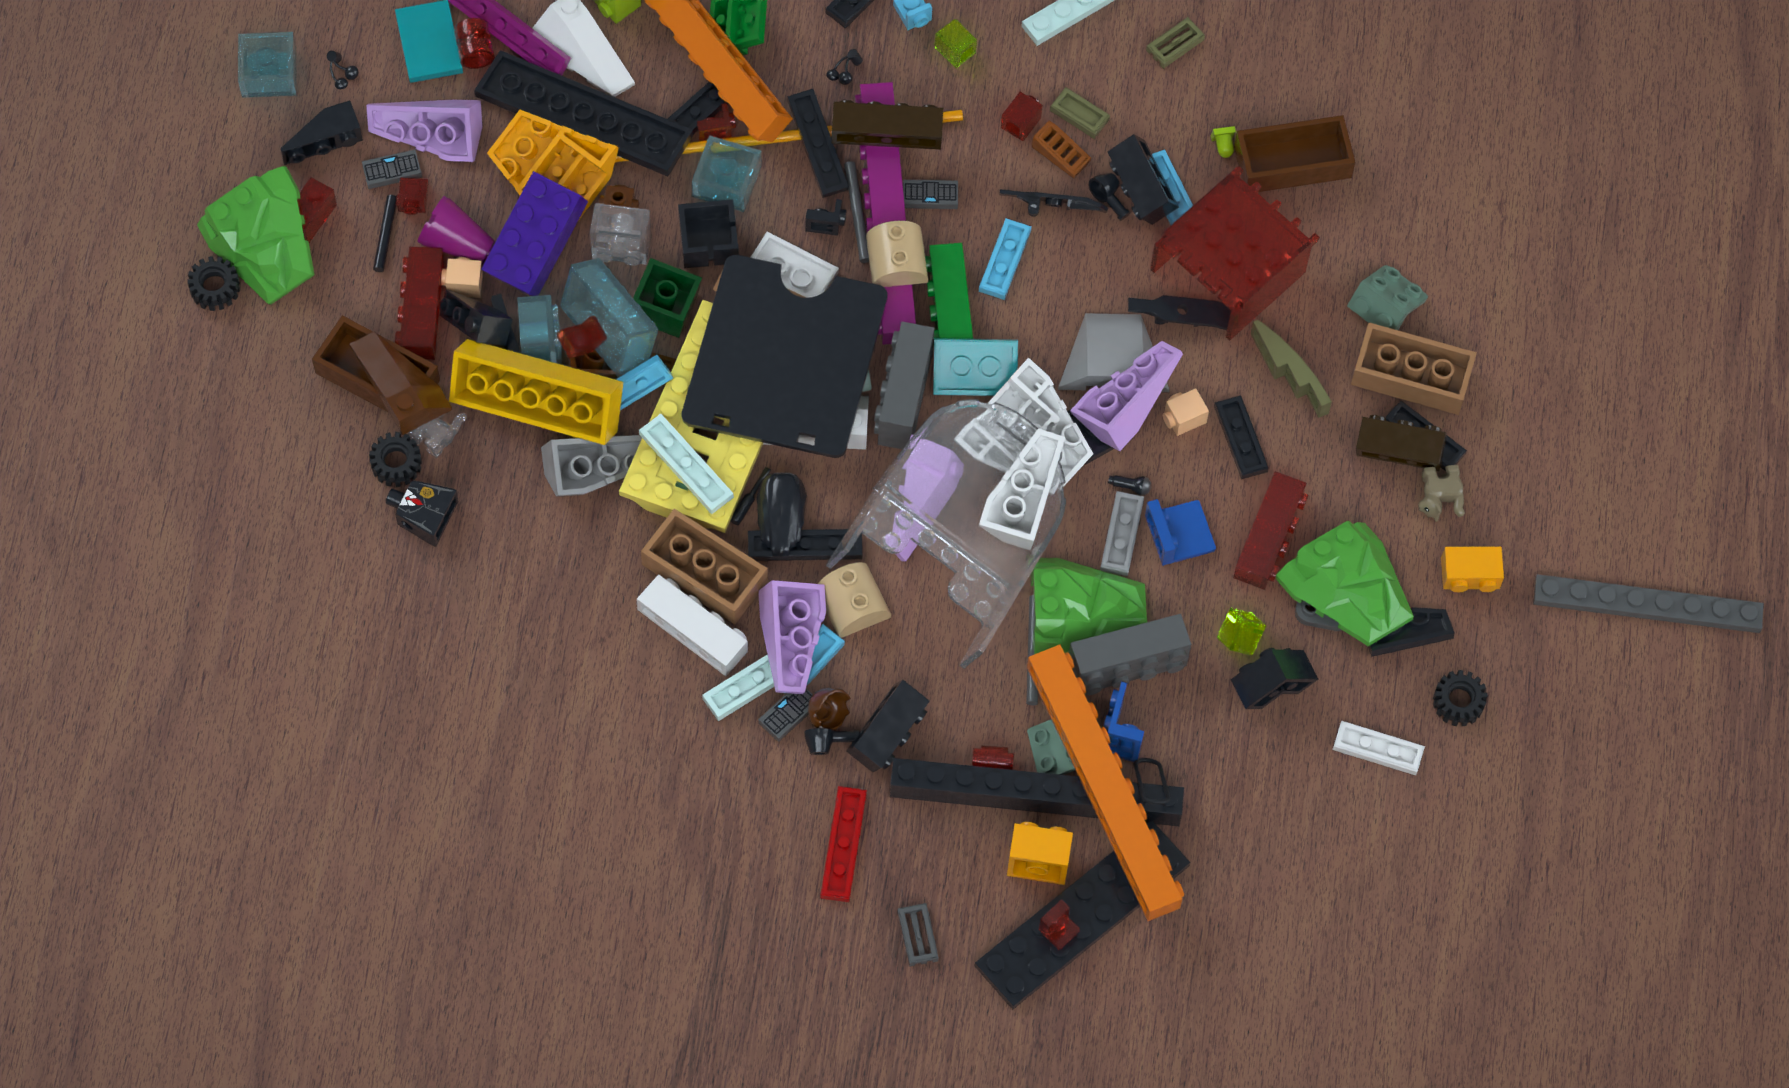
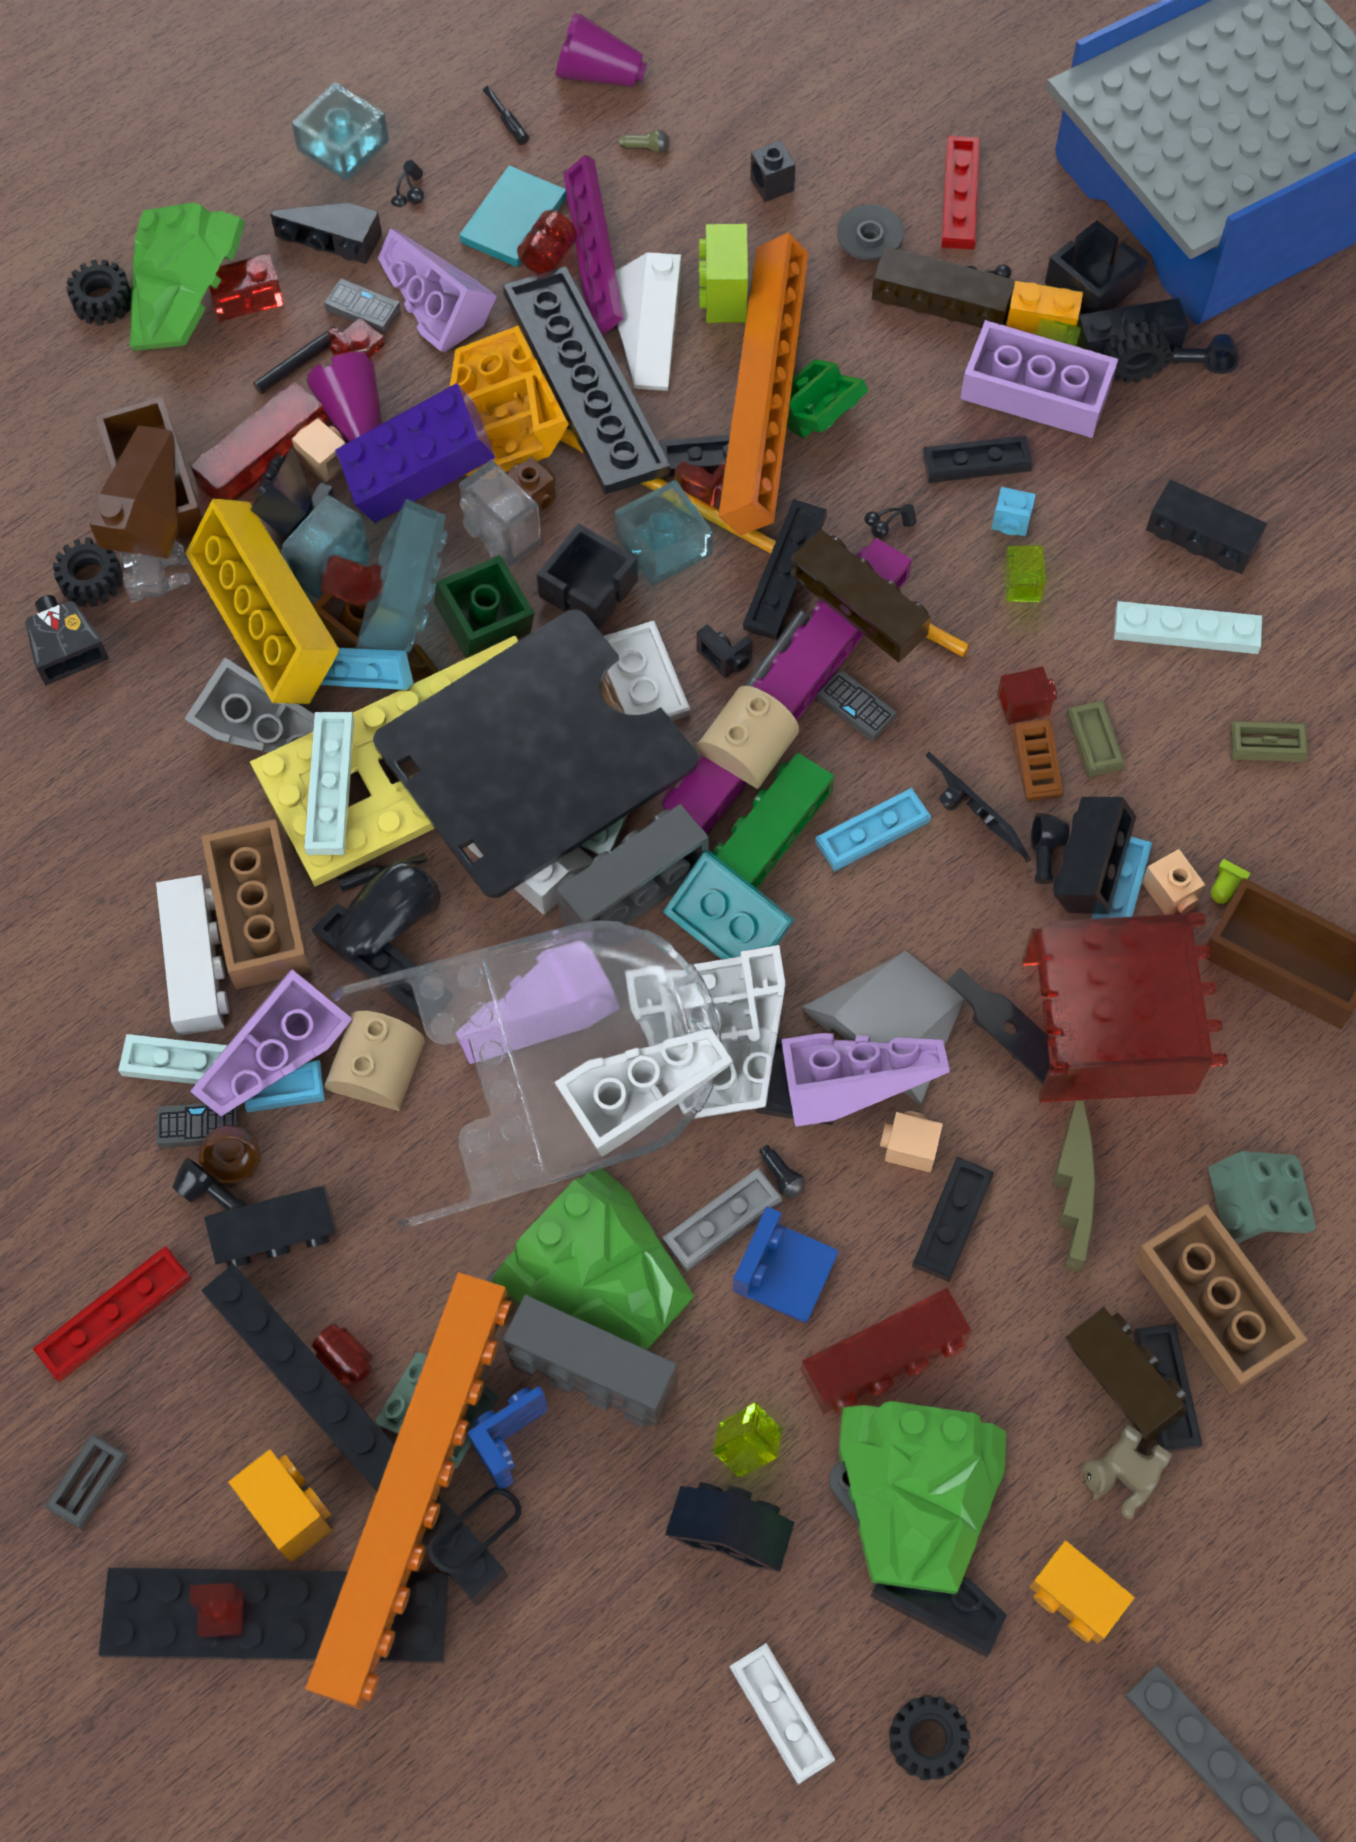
camera: 45 degrees right, 0 degrees up
(1198, 164) = (1173, 884): none -> light nougat brick

